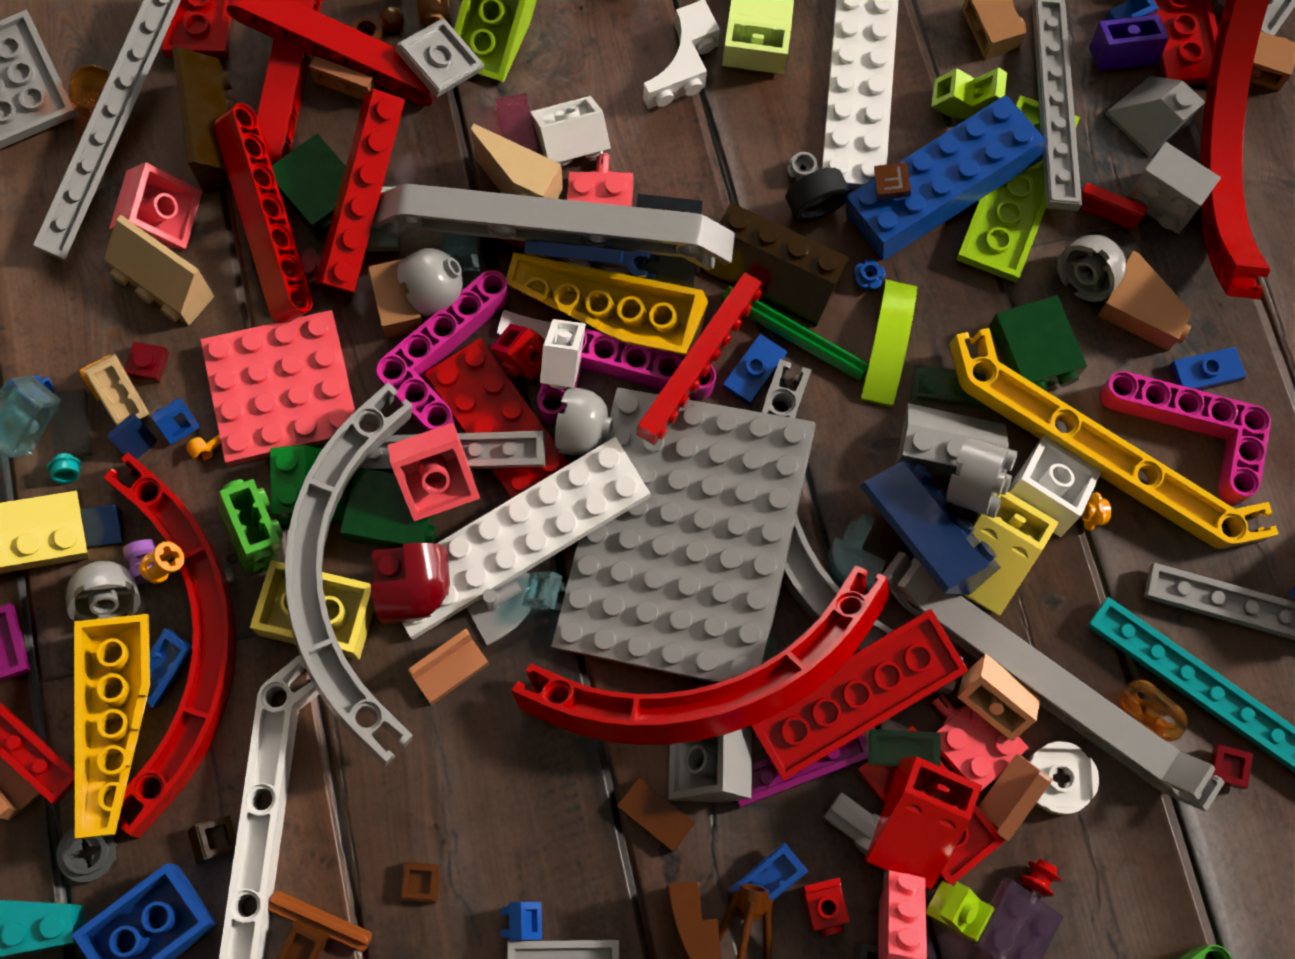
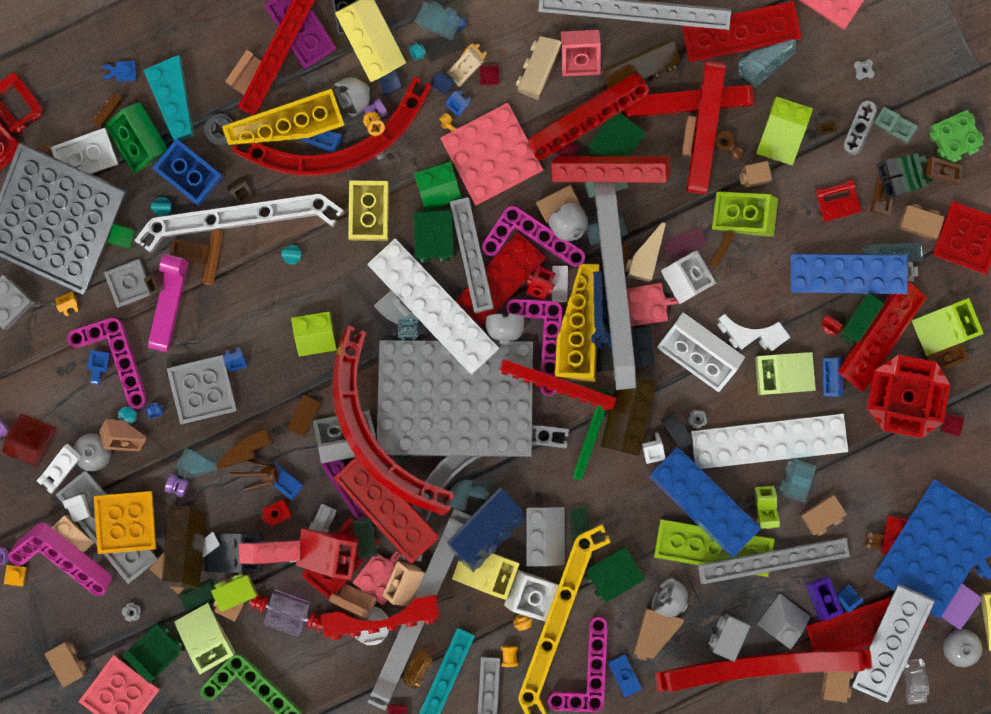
camera: 80 degrees right, 15 degrees up
(249, 526) = (404, 163): bright green brick -> none
(303, 571) = (382, 202): light grey piece -> none
(356, 769) = (291, 254): none -> teal plate
(409, 581) = (393, 257): dark red brick -> none
(420, 882) = (243, 302): reddish brown tile -> none
(433, 472) = (455, 254): coral slope -> none
(439, 57) = (712, 190): light grey tile -> none
(448, 666) = (355, 289): nougat panel -> none
(510, 760) = (314, 334): none -> lime slope
(538, 71) = (721, 249): none -> reddish brown tile
(562, 353) = (540, 307): white slope -> none
(697, 136) = (701, 352): none -> white slope
(754, 369) = (564, 416): blue plate -> none
(843, 232) = (653, 450): none -> white panel
(865, 282) = (638, 475): blue plate -> none
(889, 343) = (599, 490): lime slope -> none
(892, 181) = (688, 471): reddish brown tile -> none
(932, 42) = (797, 480): none -> clear light blue brick
(959, 911) = (287, 581): lime brick -> none
(981, 476) = (516, 551): light grey brick -> none
(1055, 824) = (342, 623): none -> red arch
(1111, 206) = (713, 603): red tile -> none
(1151, 547) = (509, 656): none -> light orange bush

